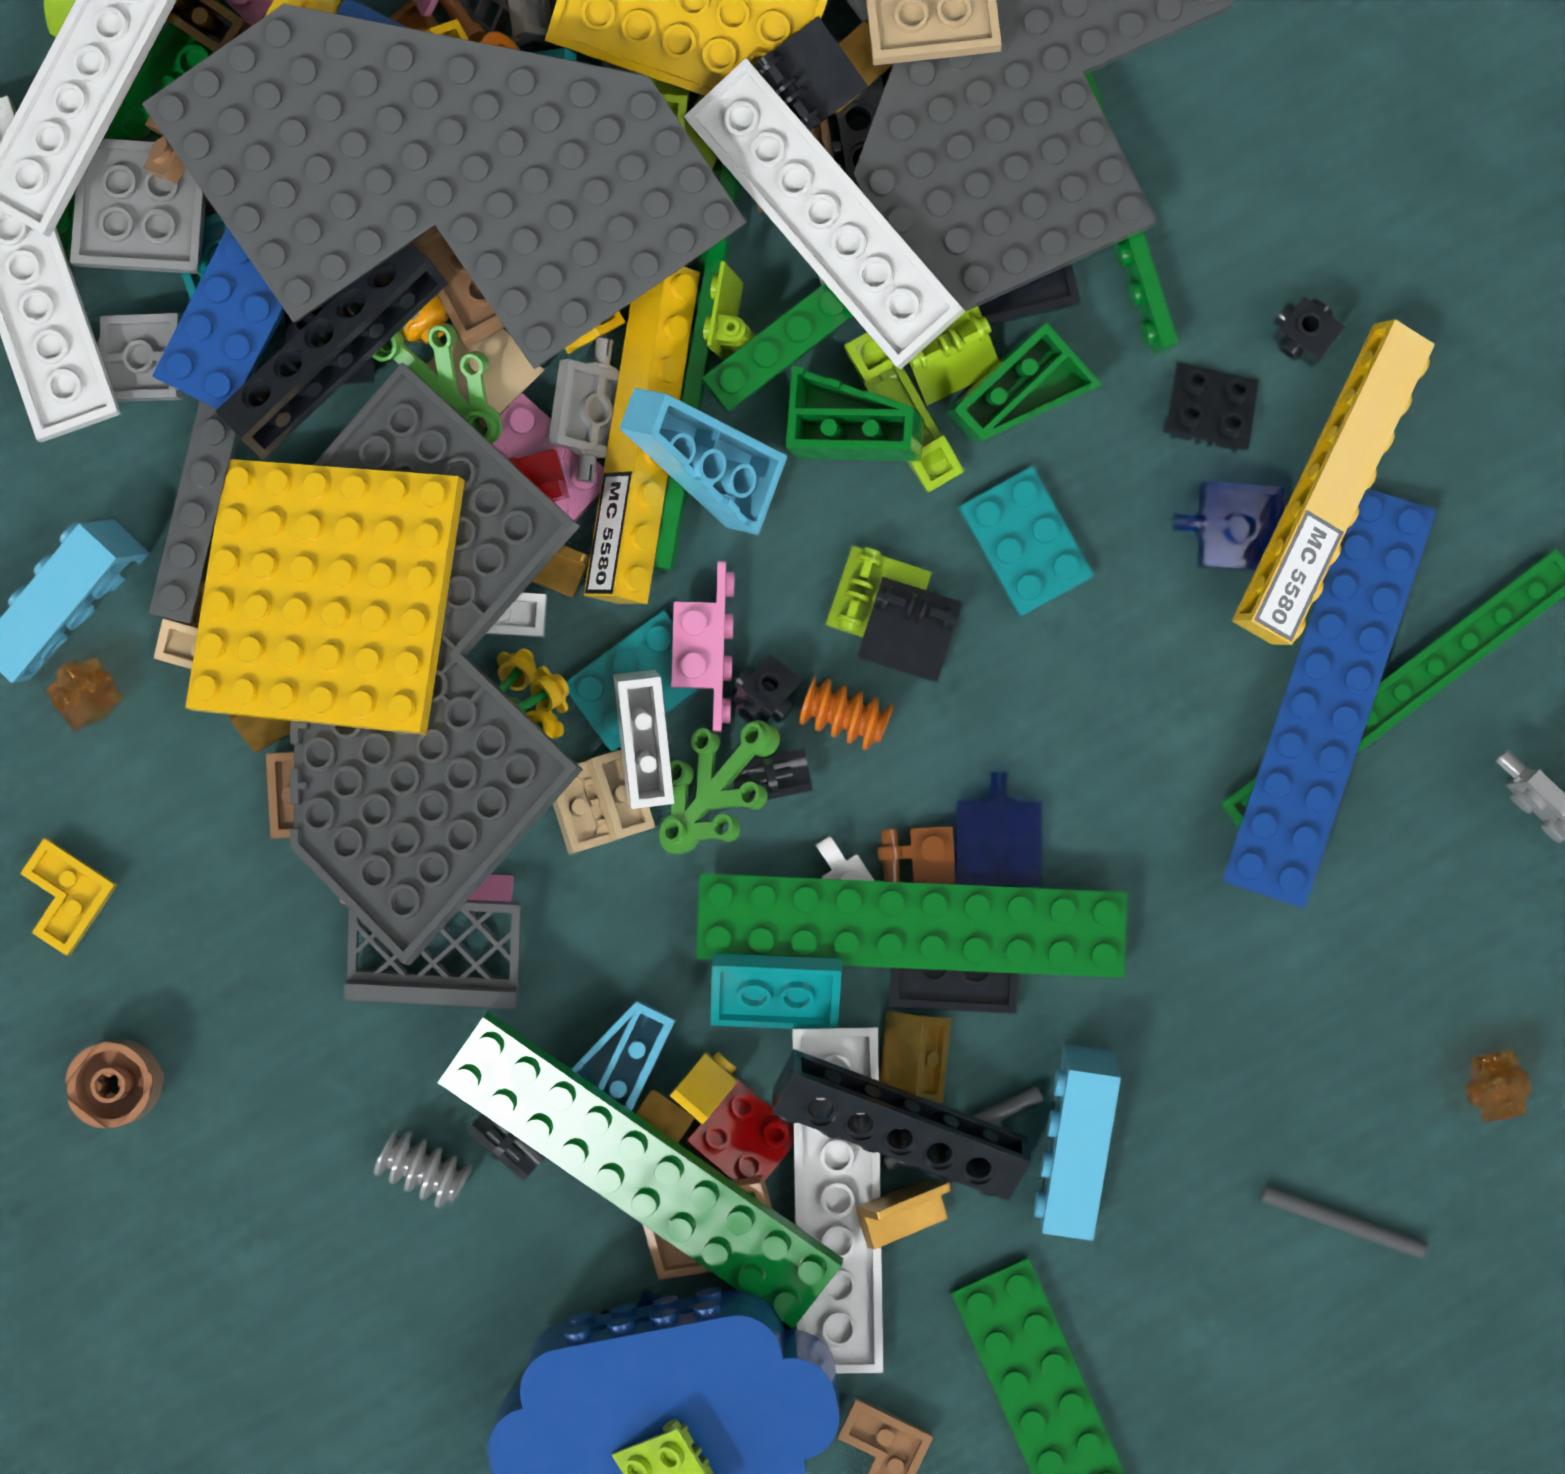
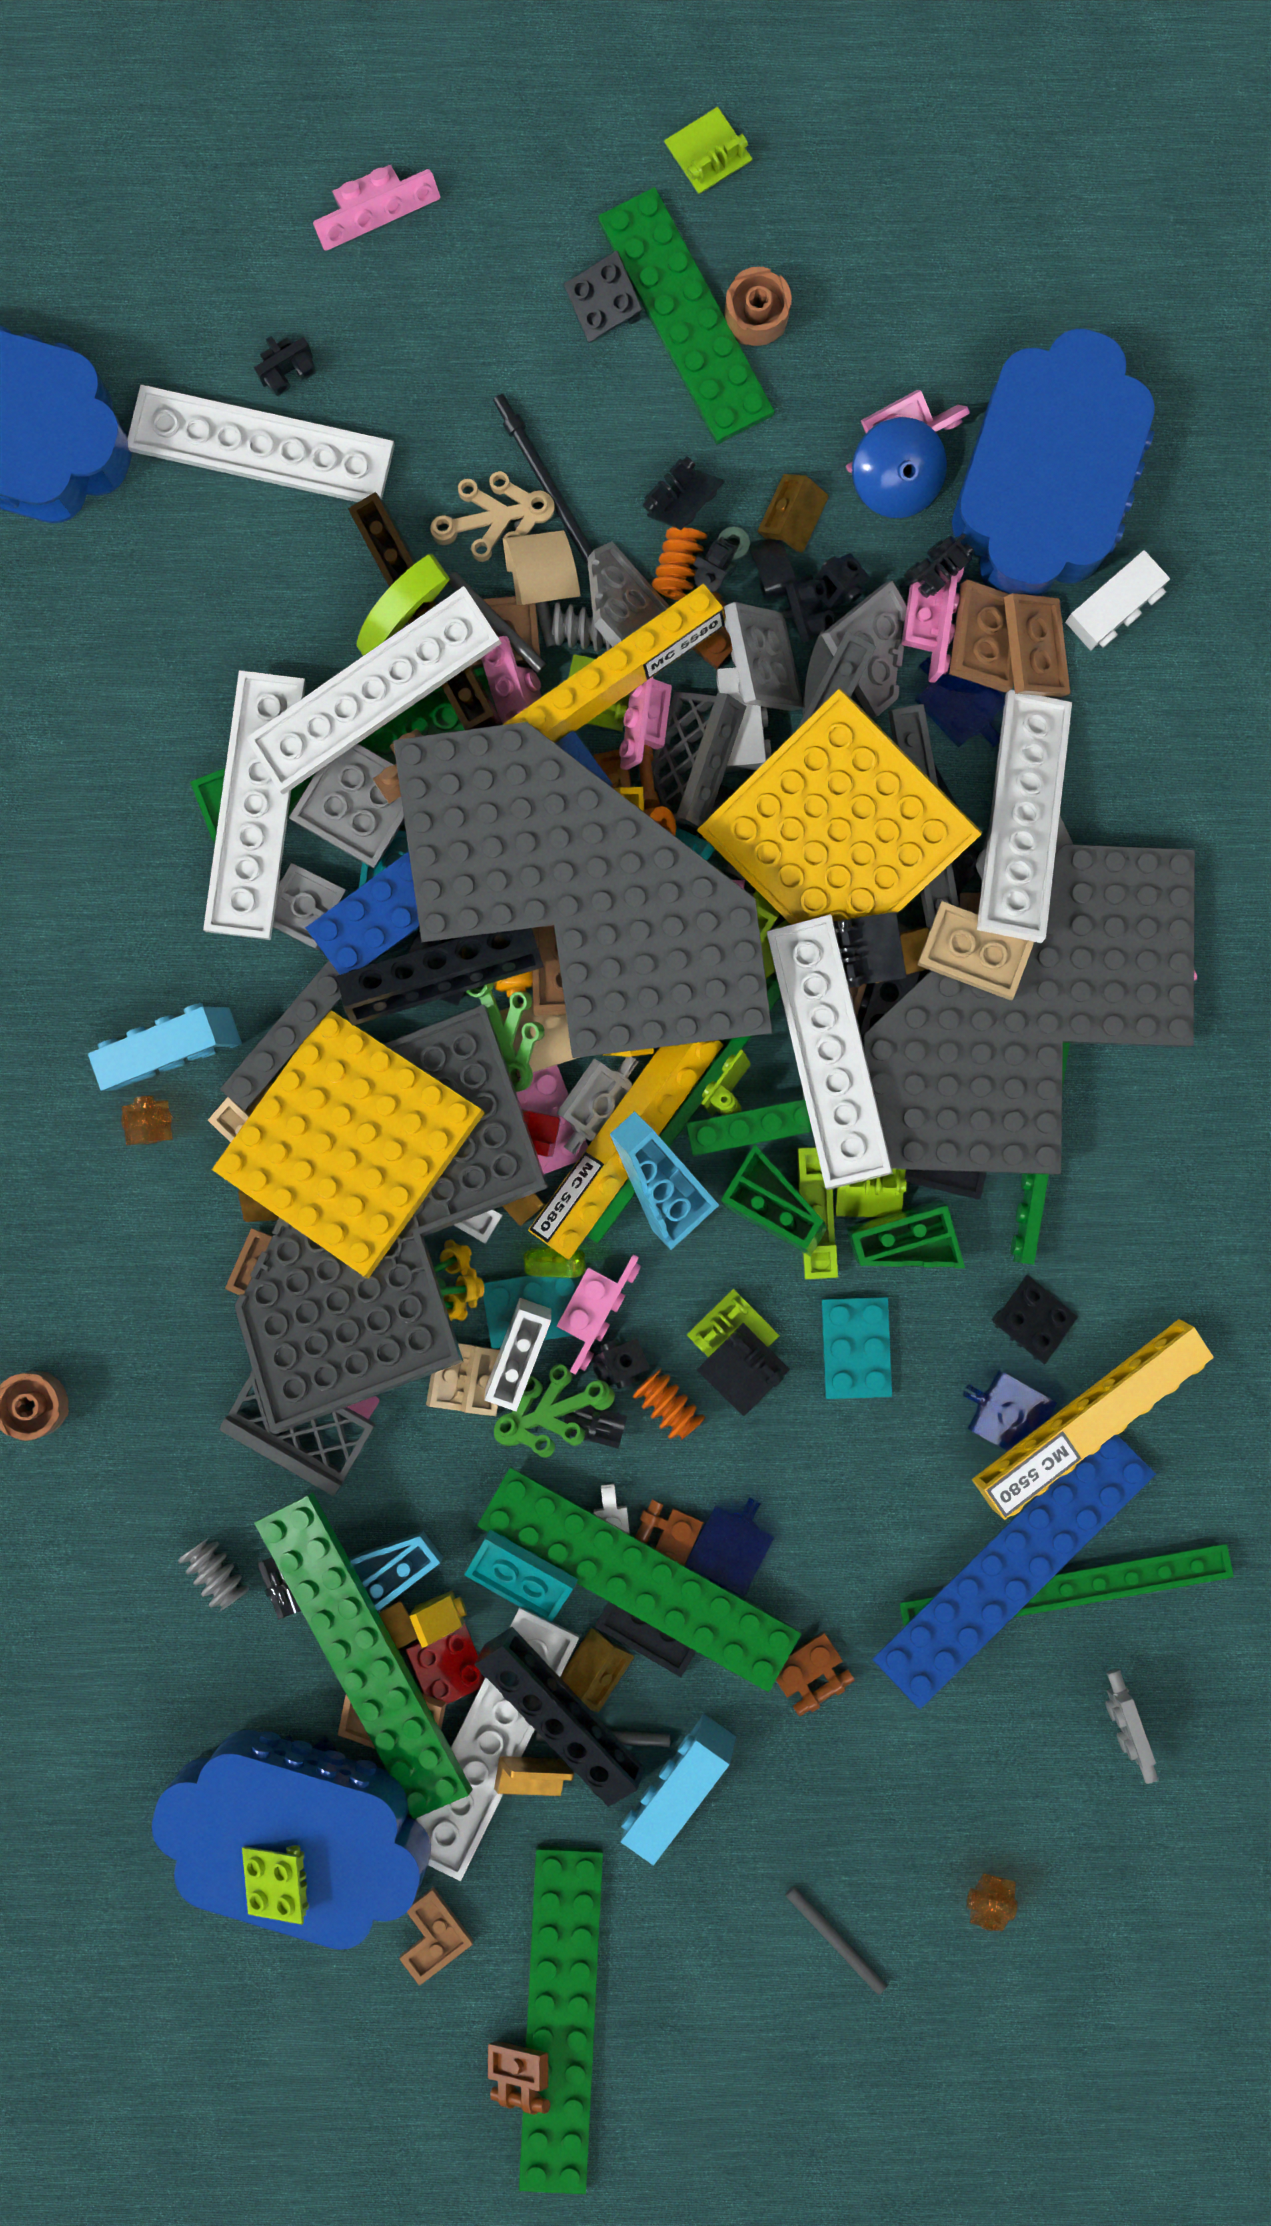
camera: 25 degrees right, 0 degrees up
(77, 890) = (72, 1257): yellow plate -> none
(631, 619) = (549, 1263): none -> clear neon green beam
(1152, 927) = (806, 1665): none -> dark orange plate
(1318, 335) = (1139, 1303): black brick -> none

